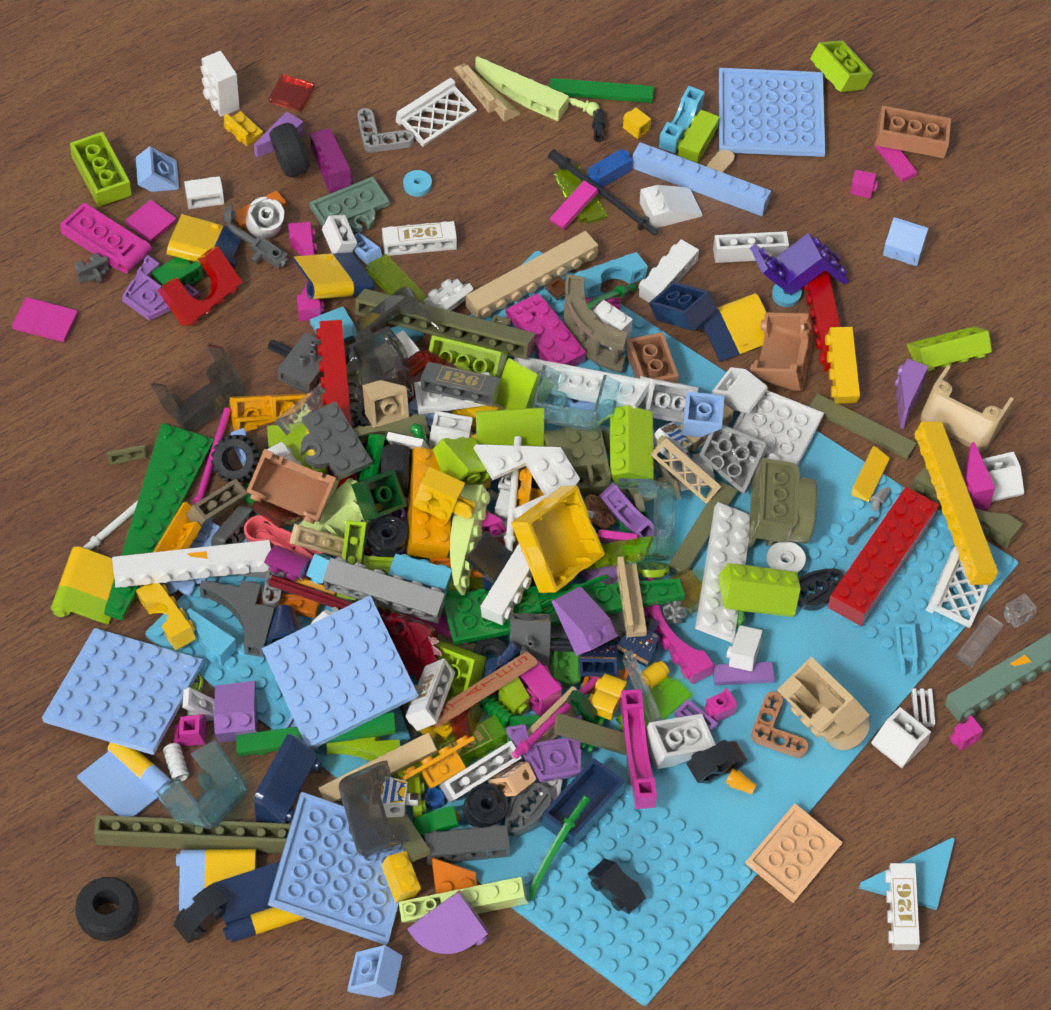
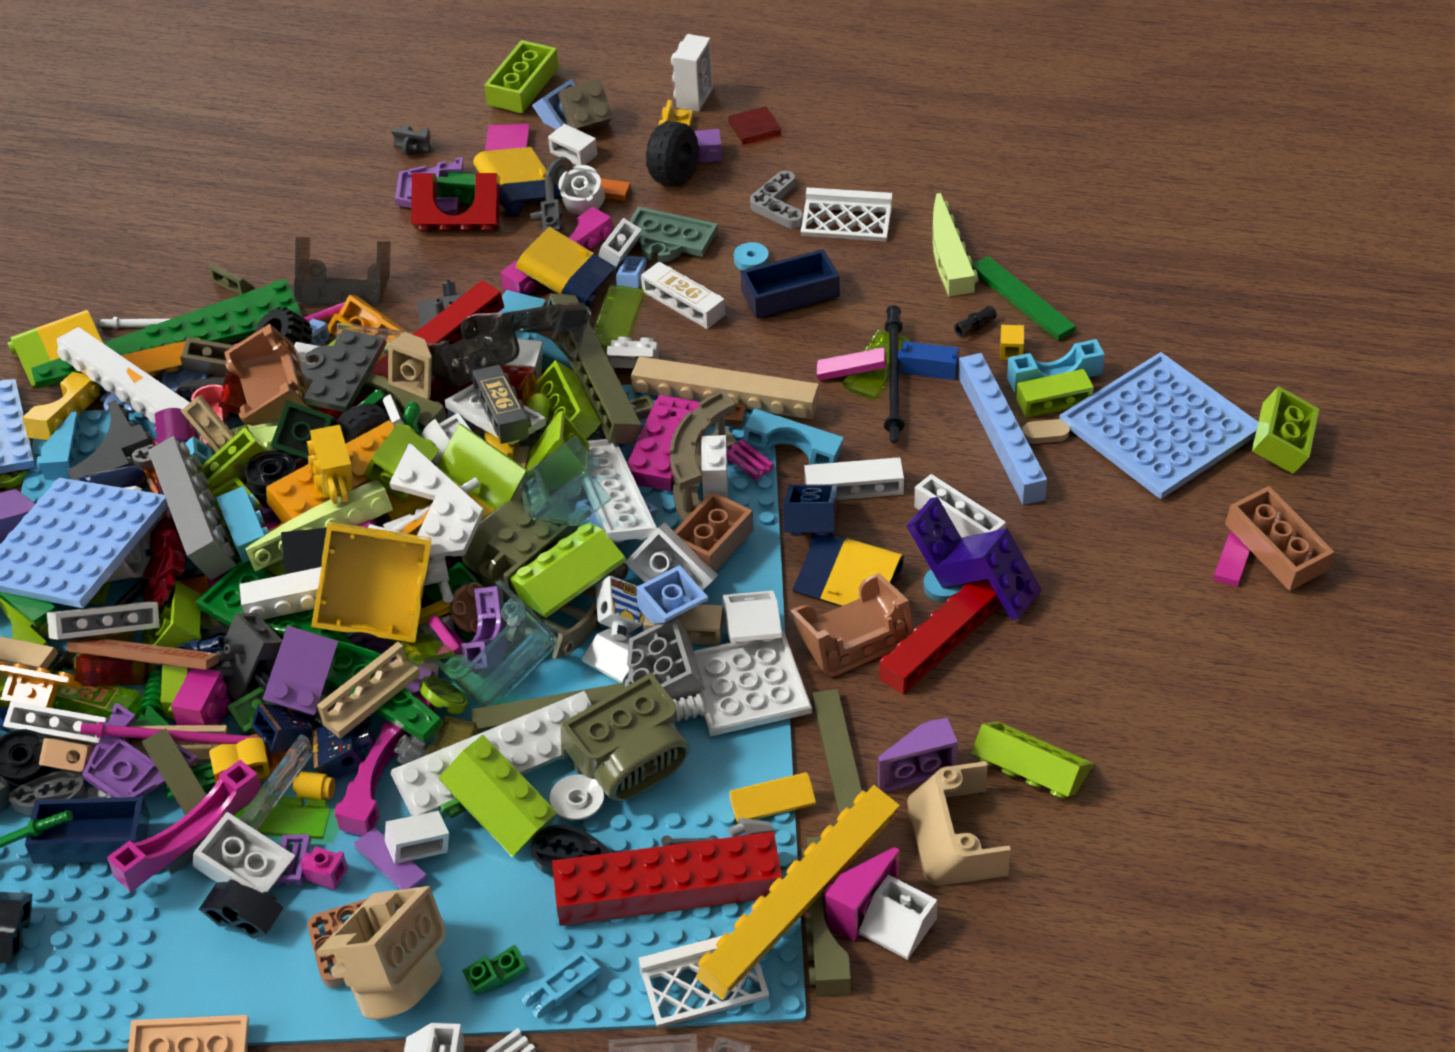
camera: 55 degrees right, 10 degrees down
(45, 319) = (329, 151): dark pink tile -> none
(106, 237) = (451, 124): dark pink hinge -> none
(181, 158) = (585, 105): none -> dark tan brick
(330, 160) = (700, 188): magenta wedge -> none
(473, 182) = (790, 283): none -> dark blue piece
(486, 94) = (915, 231): tan wedge -> none
(582, 706) = (201, 746): dark green beam -> none
(588, 107) = (987, 298): yellowish green bar -> none
(619, 291) = (778, 456): green sword -> none
(668, 205) = (940, 427): white slope -> none
(686, 463) = (601, 634): tan fence -> none
(741, 782) = (236, 945): light orange cone -> none
(843, 365) = (884, 677): yellow brick -> none
(863, 184) = (1161, 548): dark pink brick -> none
(868, 672) = (493, 973): none -> green slope
(905, 241) = (1122, 627): light blue slope -> none

